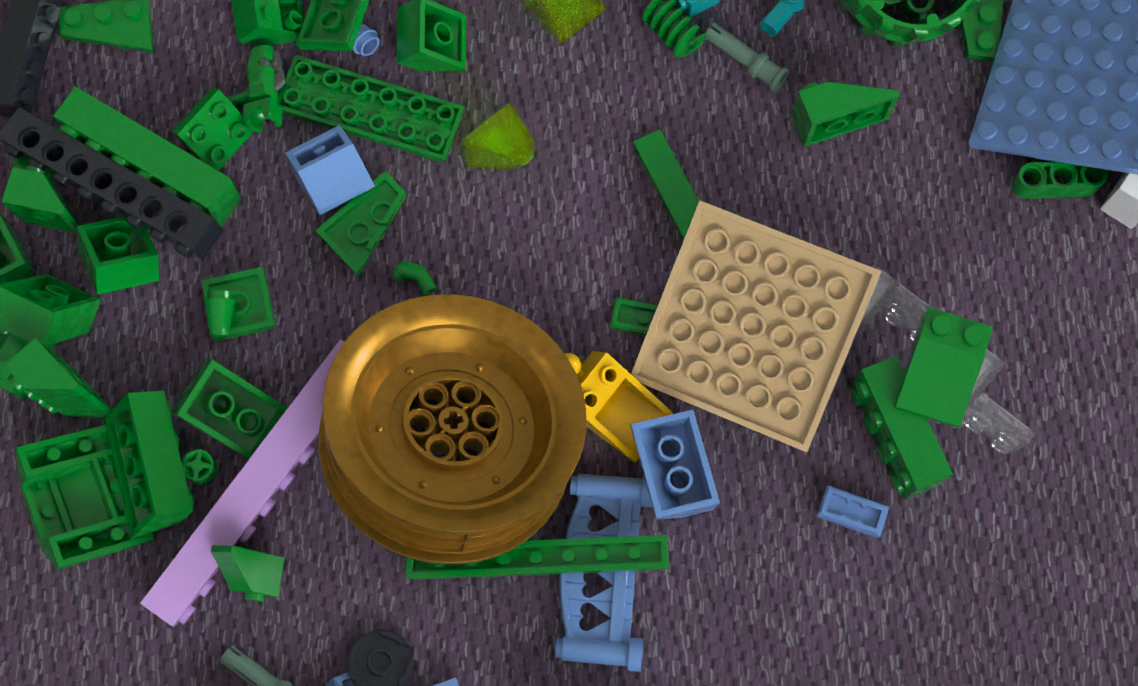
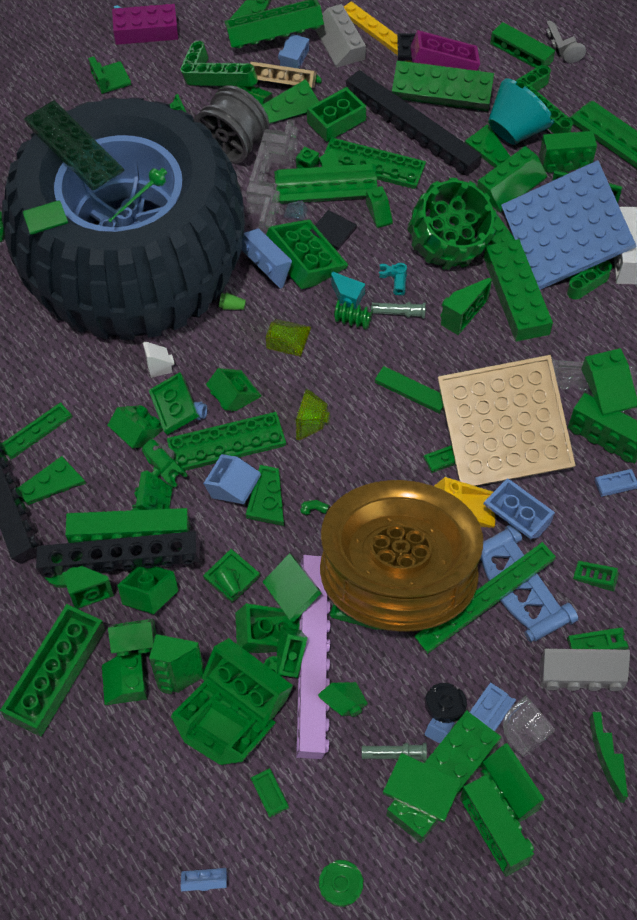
camera: 35 degrees left, 15 degrees down
(79, 626) = (269, 793): none -> green tile
(225, 461) = (290, 651): none -> green slope
(293, 374) = (292, 587): none -> green tile
(737, 646) = (601, 583): none -> green slope
(938, 131) = (517, 290): none -> green brick

